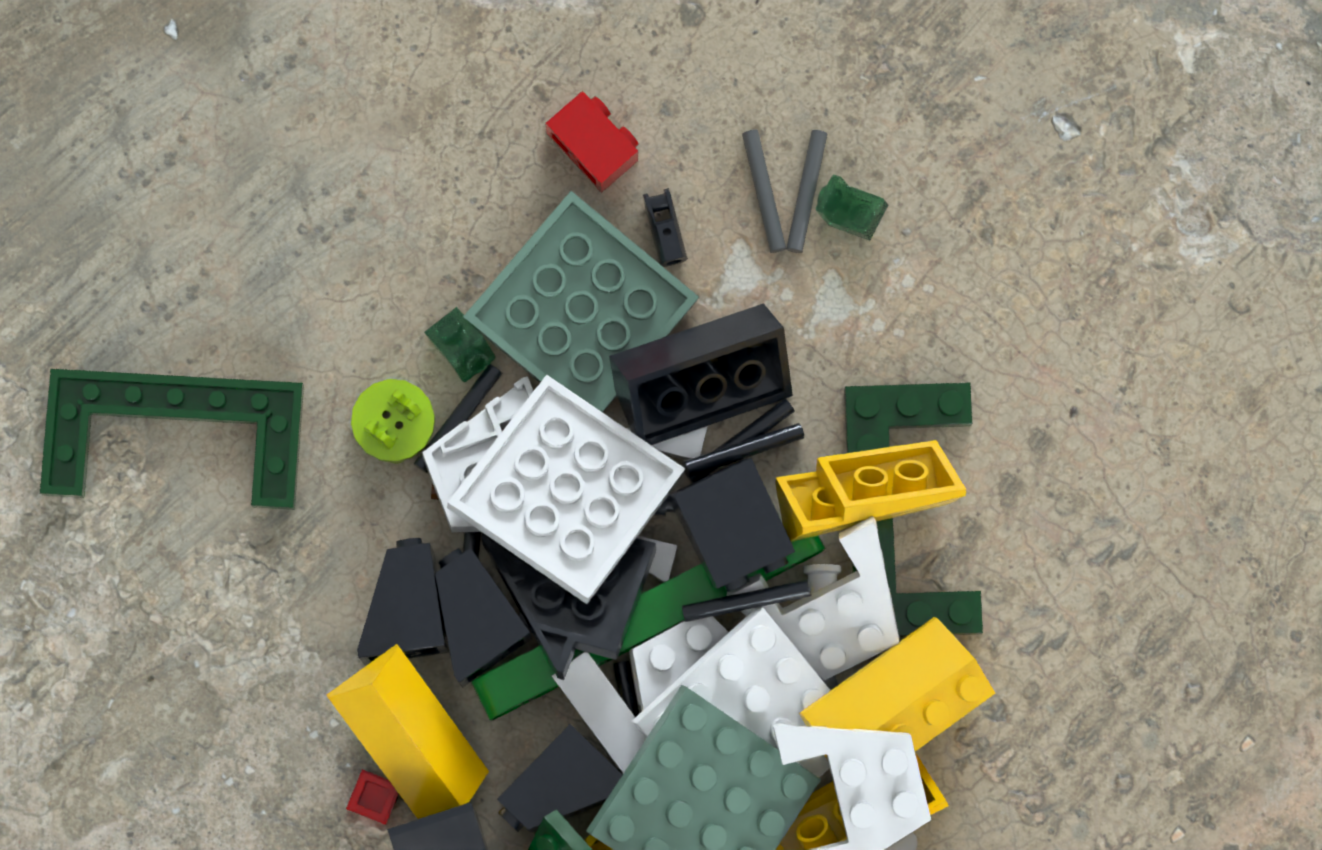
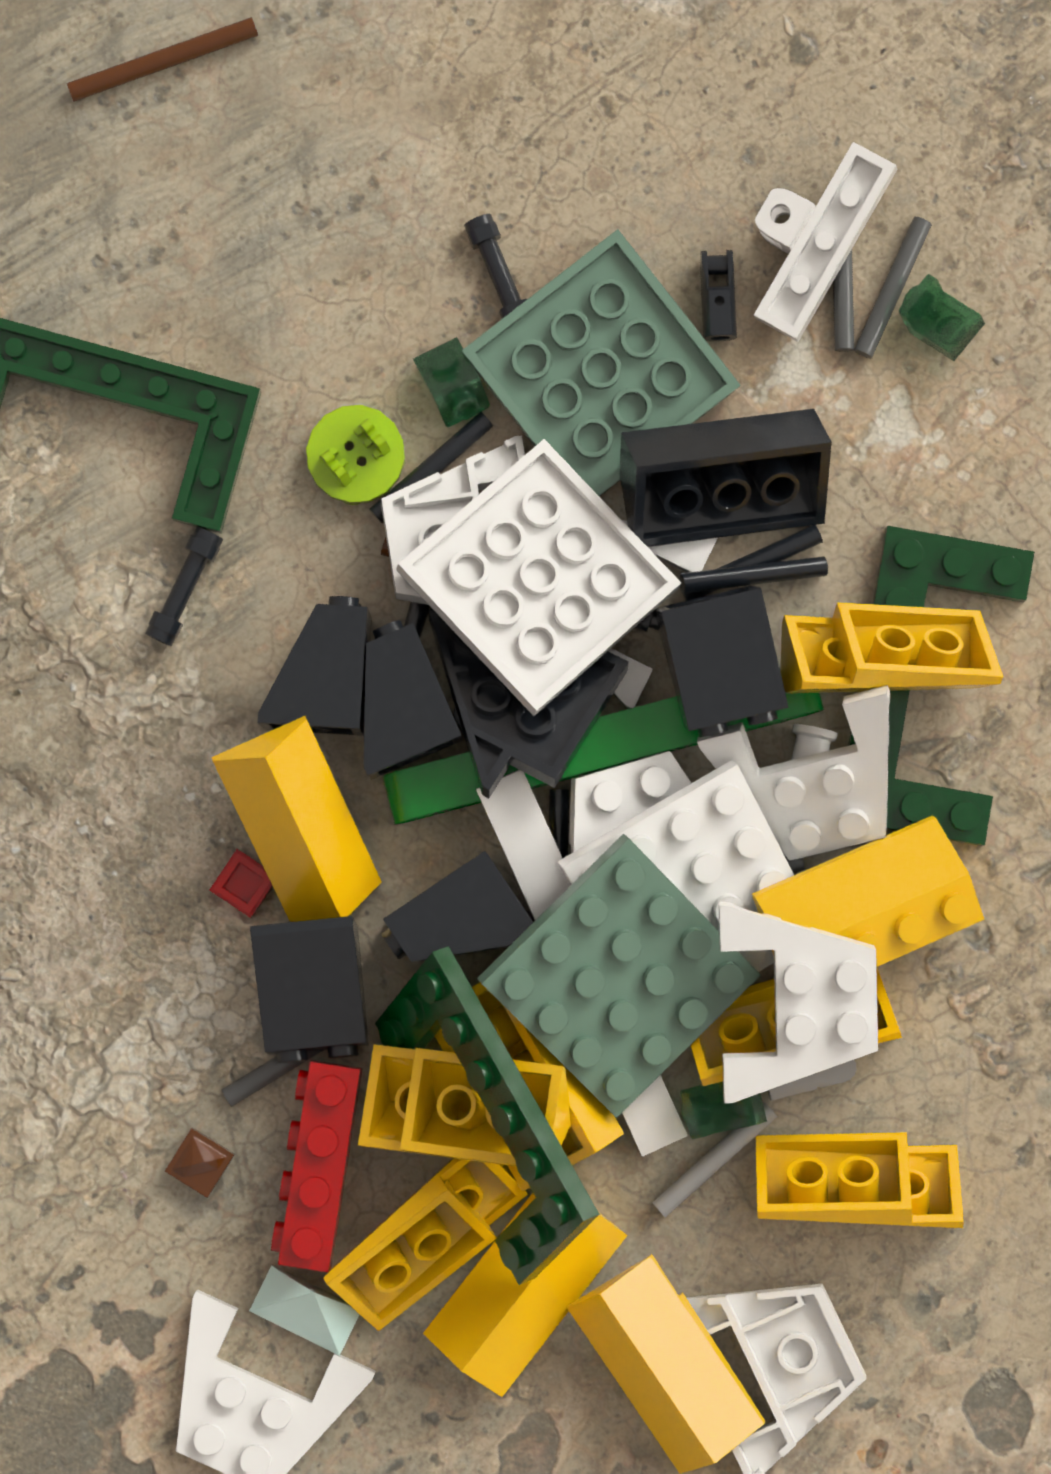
camera: 15 degrees right, 5 degrees up
(165, 130) = (162, 59): none -> reddish brown bar
(281, 525) = (202, 547): none -> black bar
(461, 219) = (484, 235): none -> black bar
(593, 140) = (656, 175): red brick -> none
(736, 163) = (818, 237): none -> white plate
(746, 600) = (720, 751): black bar -> none

